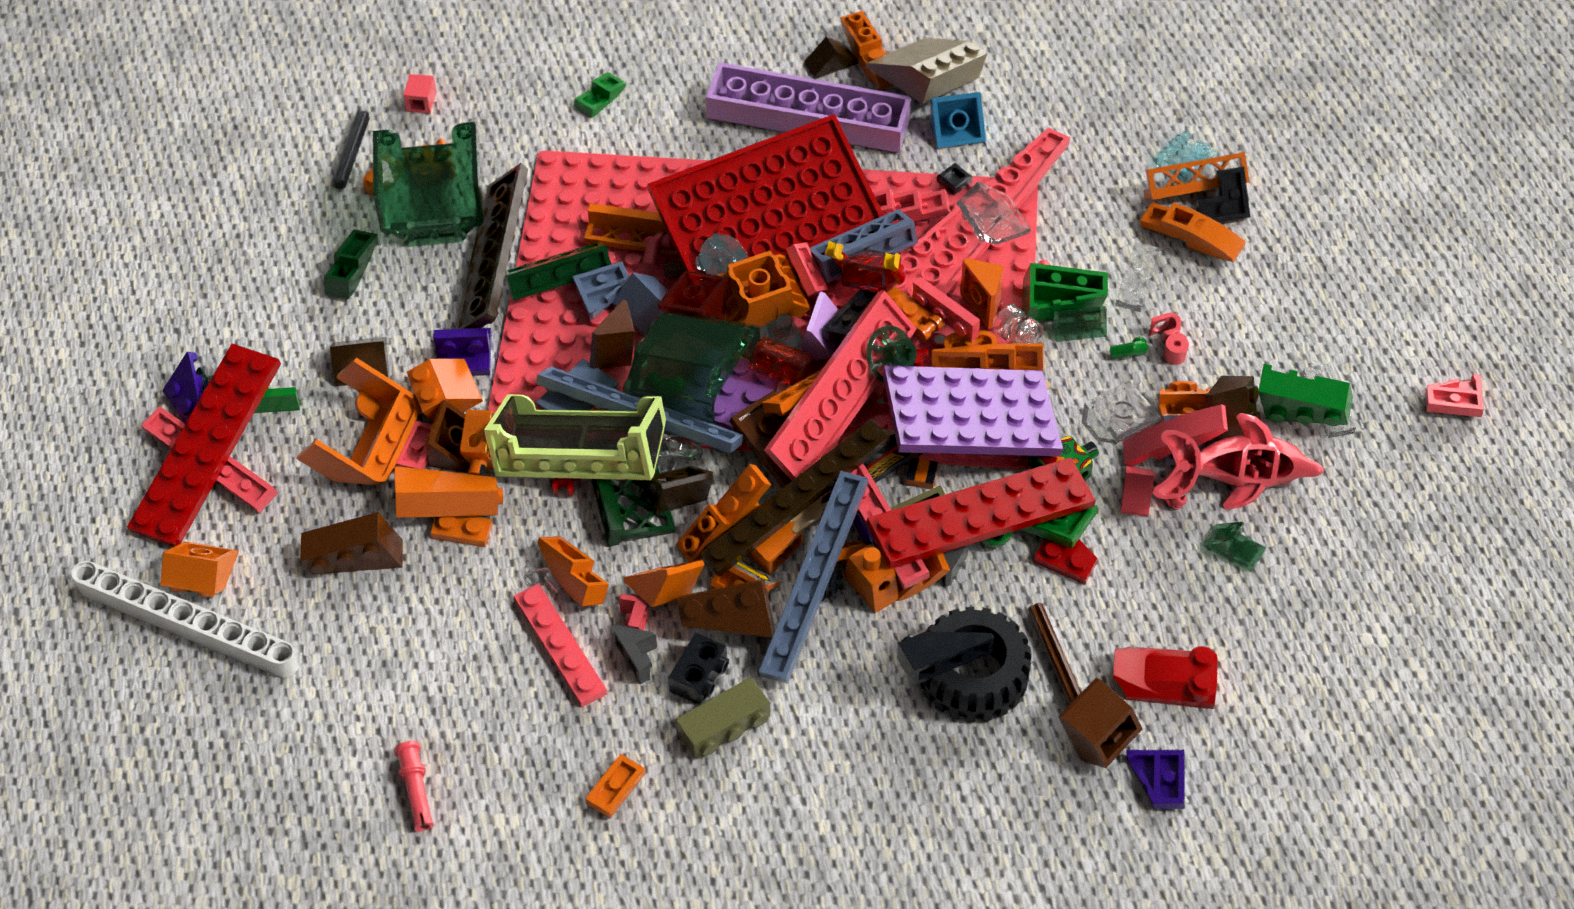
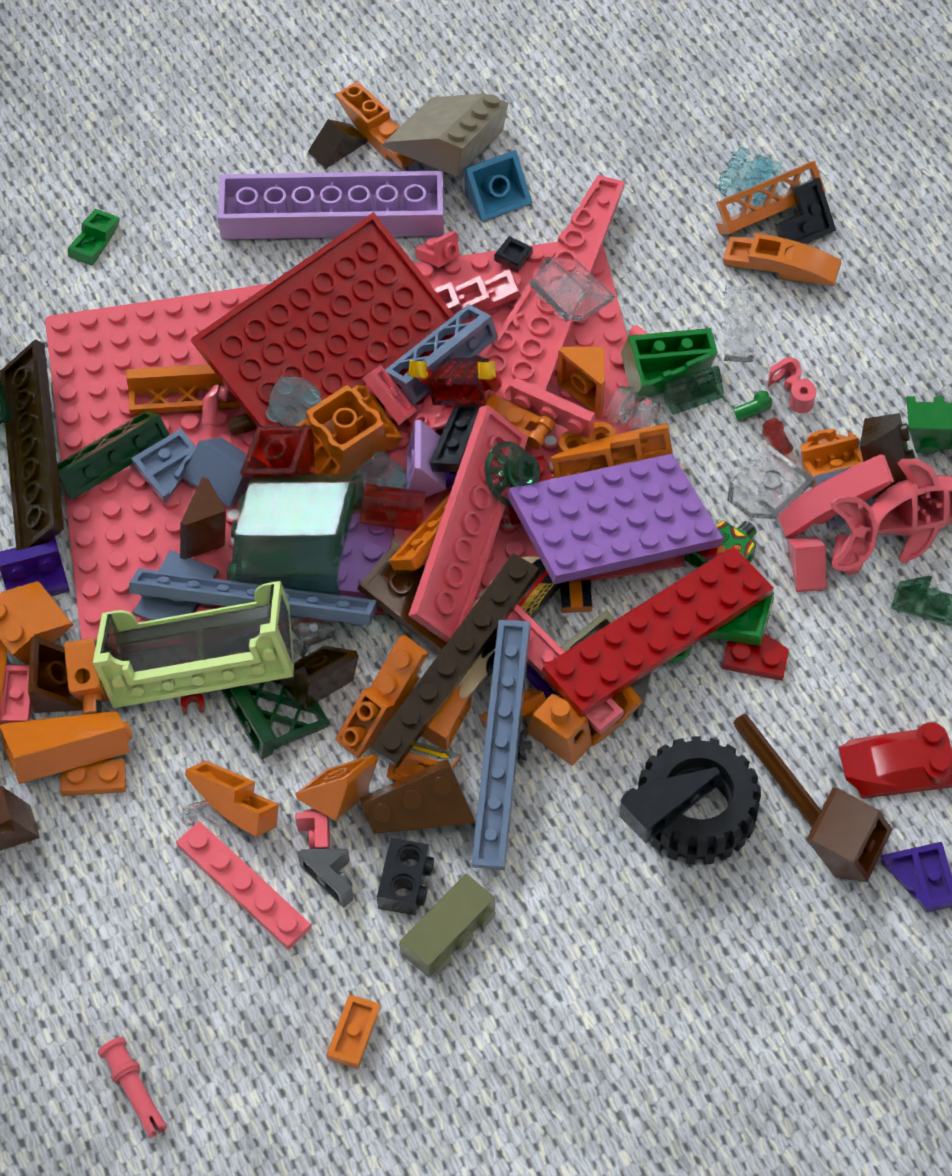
camera: 15 degrees left, 5 degrees up
(891, 162) = (439, 250): none -> coral bracket
(1141, 372) = (774, 431): none -> clear red pin

